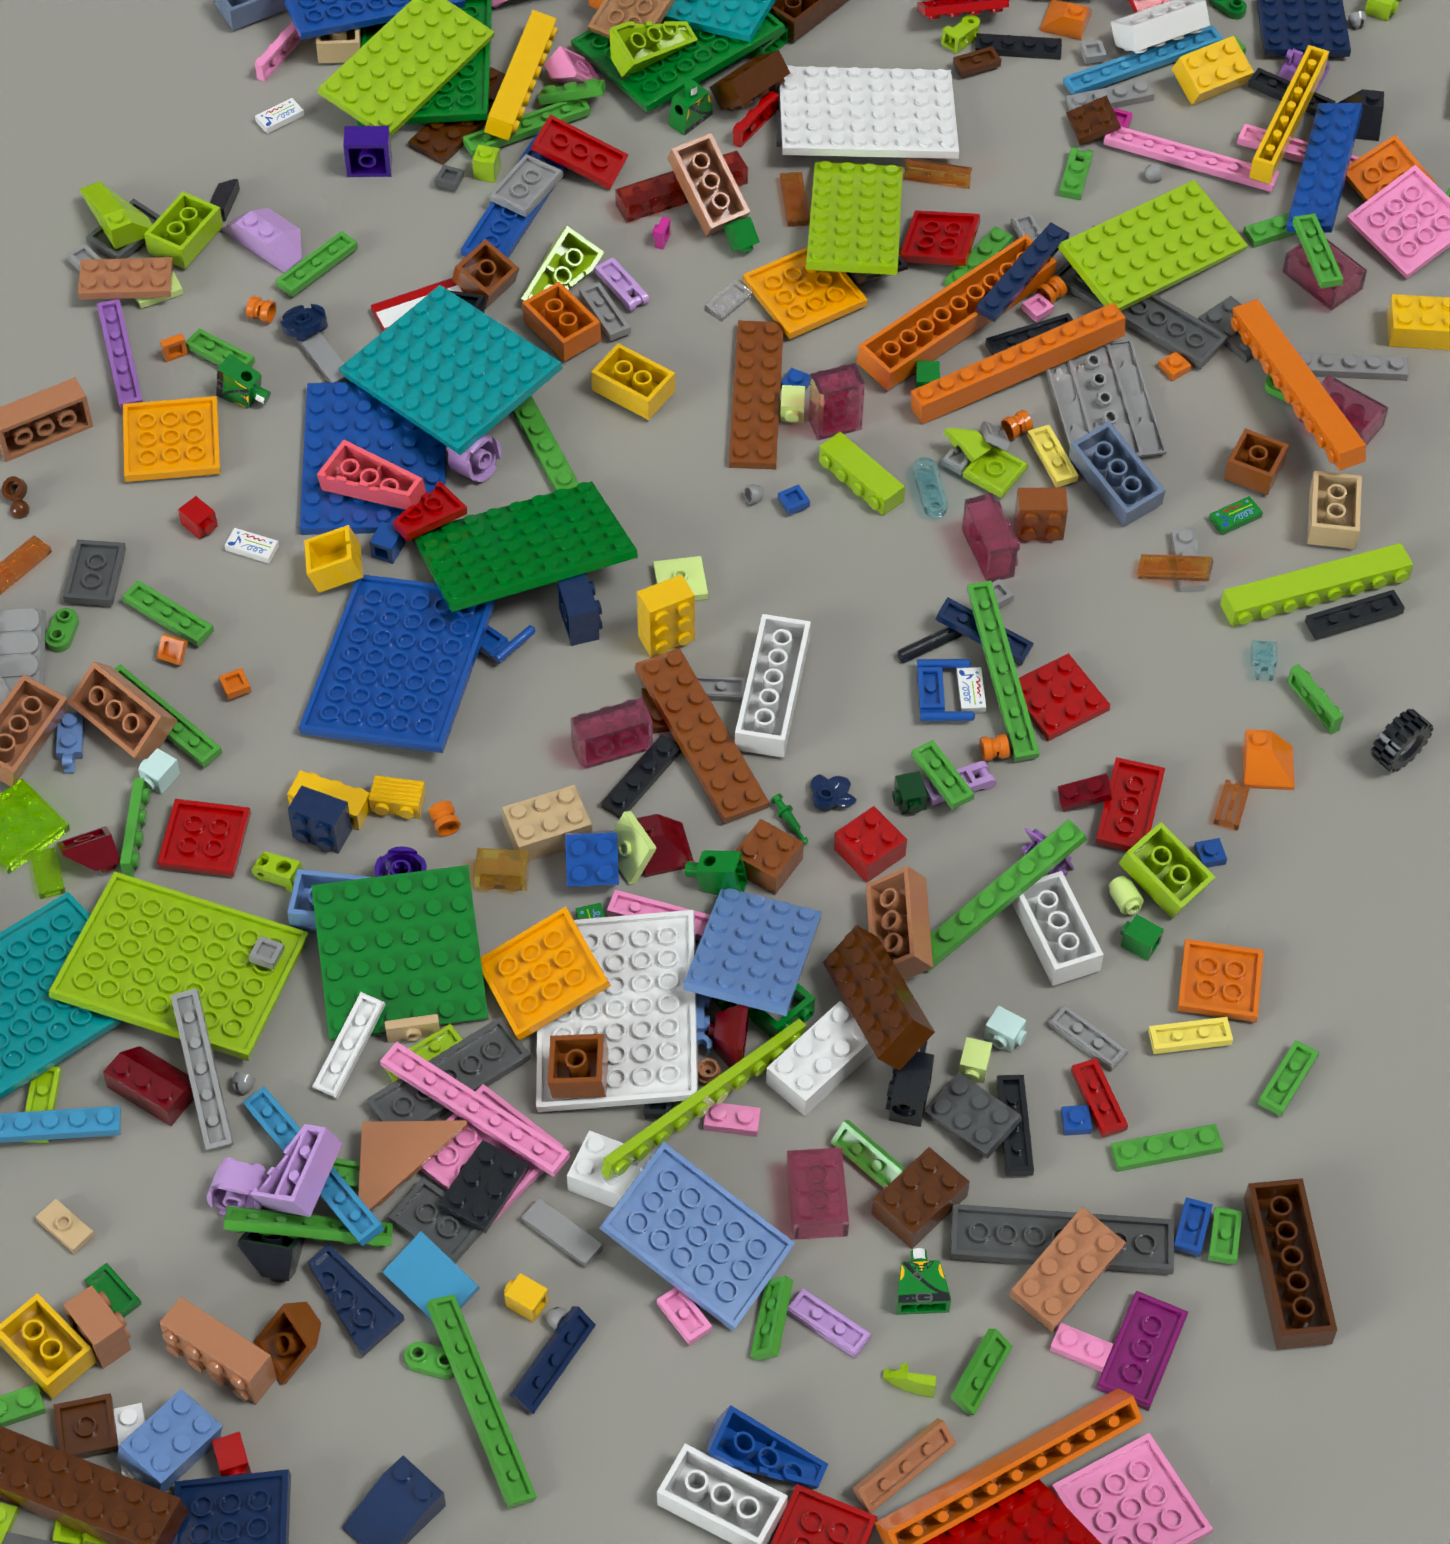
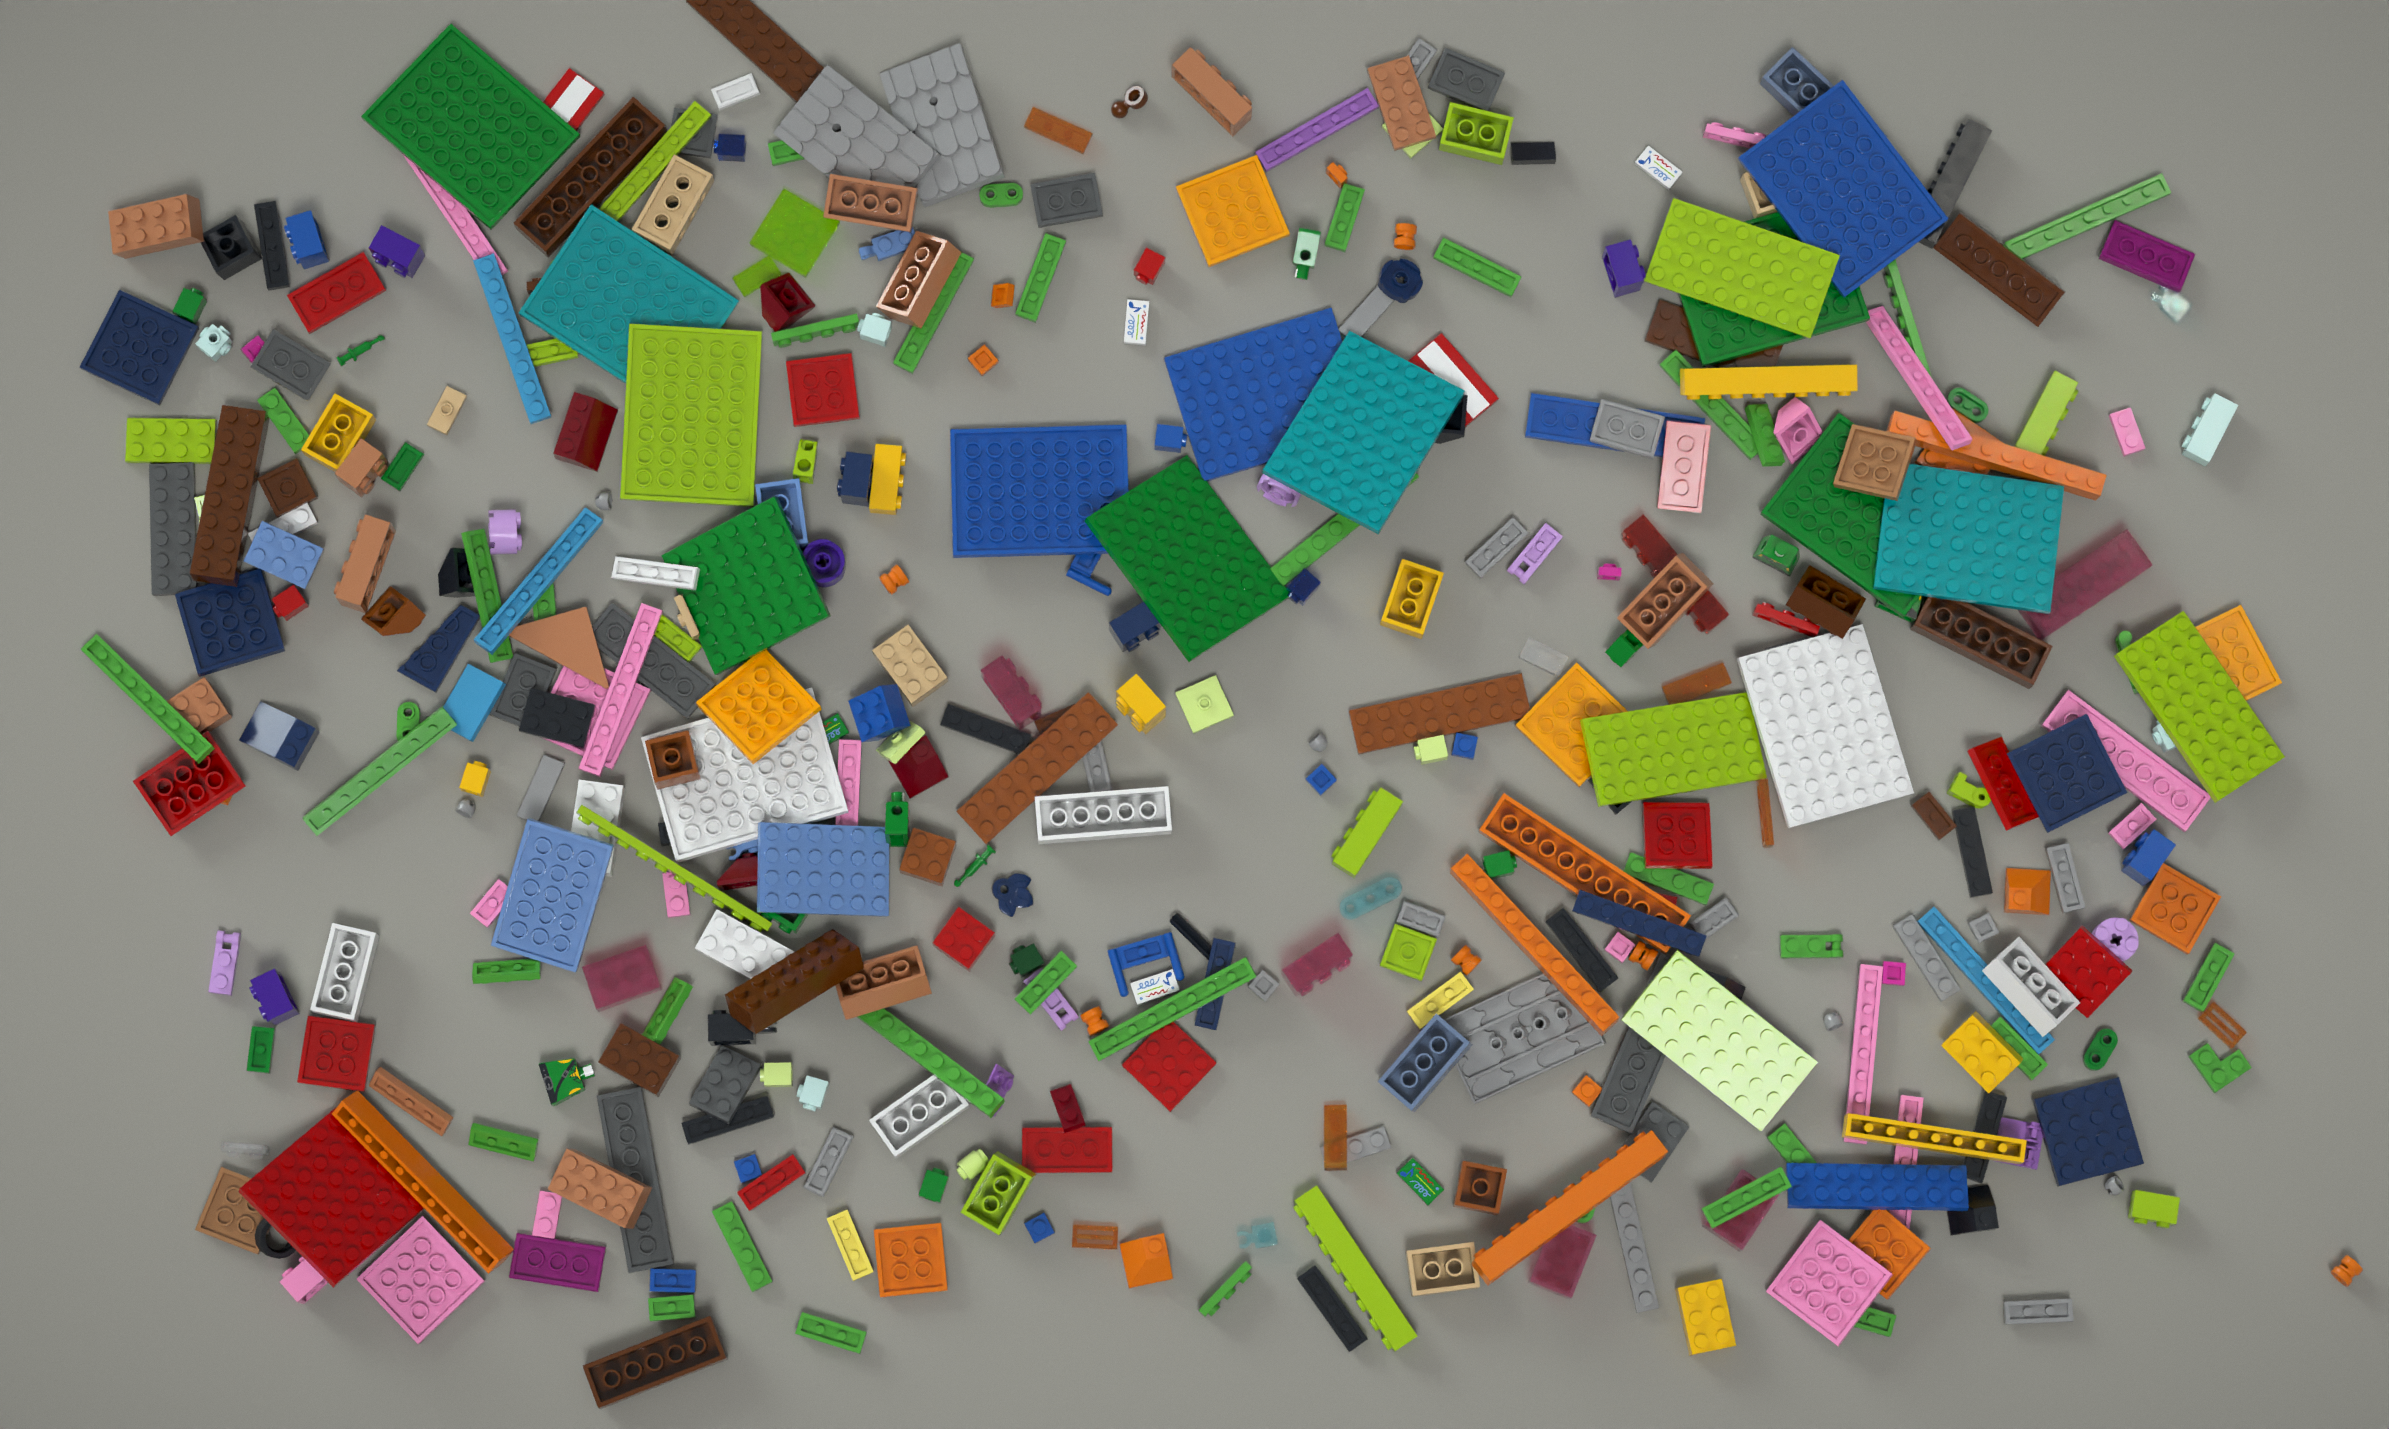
camera: 70 degrees right, 25 degrees up
(116, 216) = (1475, 66): lime wedge -> none
(202, 1070) = (596, 467): light grey plate -> none
(266, 952) = (716, 480): light grey plate -> none
(268, 237) = (1498, 211): lavender wedge -> none
(301, 1173) = (516, 576): lavender wedge -> none
(333, 558) = (1128, 399): yellow piece -> none
(369, 478) = (1223, 399): coral wedge -> none
(397, 796) = (904, 533): yellow brick -> none
(430, 513) = (1204, 467): red wing -> none
(449, 177) = (1622, 353): dark grey plate -> none
(485, 272) = (1500, 426): dark orange brick -> none
(486, 163) = (1647, 382): lime brick -> none
(501, 869) = (856, 642): clear yellow brick -> none
(552, 1360) = (429, 815): dark blue plate -> none
(561, 321) = (1465, 512): orange brick -> none
(566, 262) = (1539, 493): lime wedge -> none
(587, 466) = (1303, 587): none -> clear blue brick
(644, 44) = (1829, 488): lime wedge -> none
(708, 1065) = (713, 857): nougat plate -> none
(759, 1450) = (389, 985): blue wedge -> none
(828, 1323) = (517, 1015): lavender tile -> none
(836, 401) = (1429, 788): clear pink brick -> none
(911, 1382) = (484, 1081): lime slope -> none
(969, 441) = (1424, 921): lime slope -> none
(994, 435) = (1441, 942): light grey plate -> none
(1040, 514) = (1357, 1004): dark orange brick -> none
(1093, 120) = (1882, 948): reddish brown plate -> none
(1401, 740) = (1188, 1370): black wheel -> none

